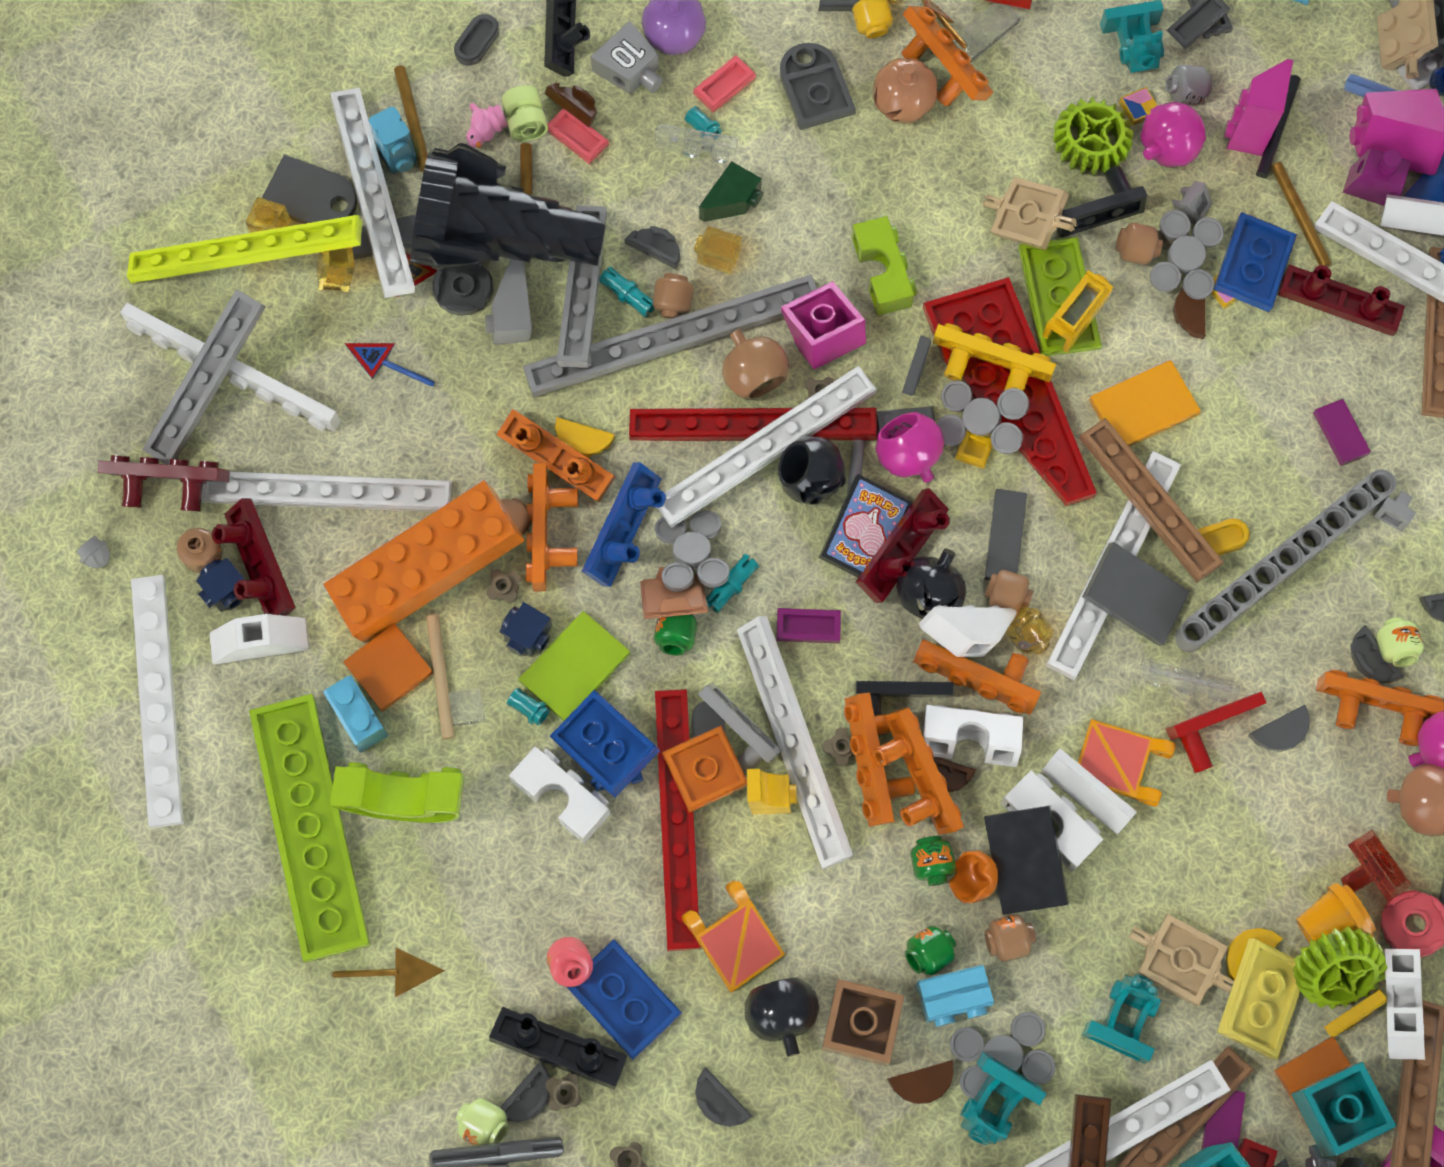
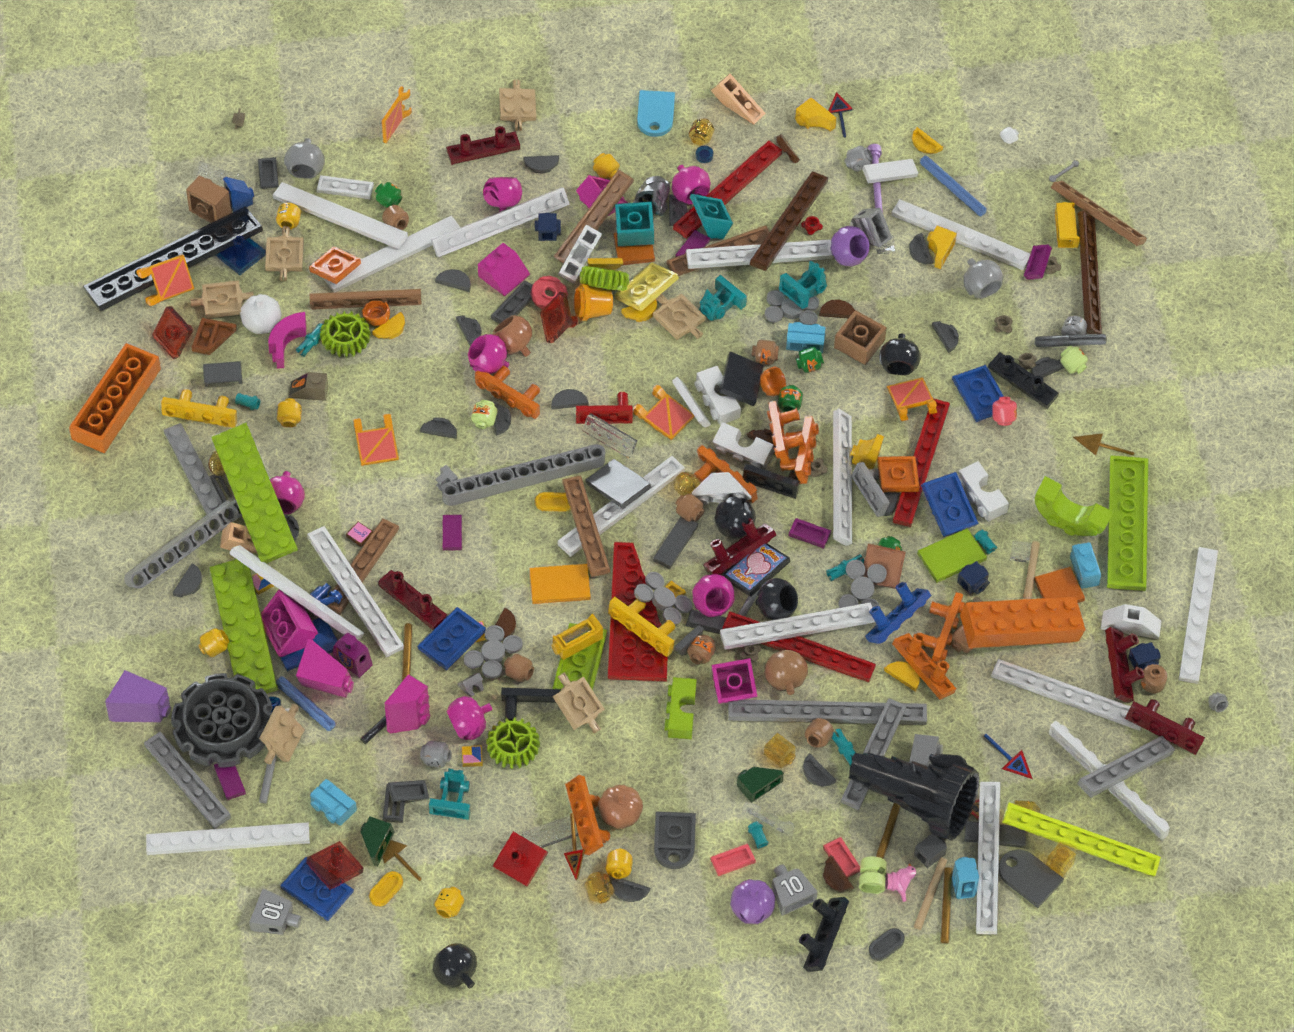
camera: 160 degrees left, 15 degrees down
(440, 111) = (930, 893): none -> tan bar
(891, 367) = (701, 649): none -> medium nougat head

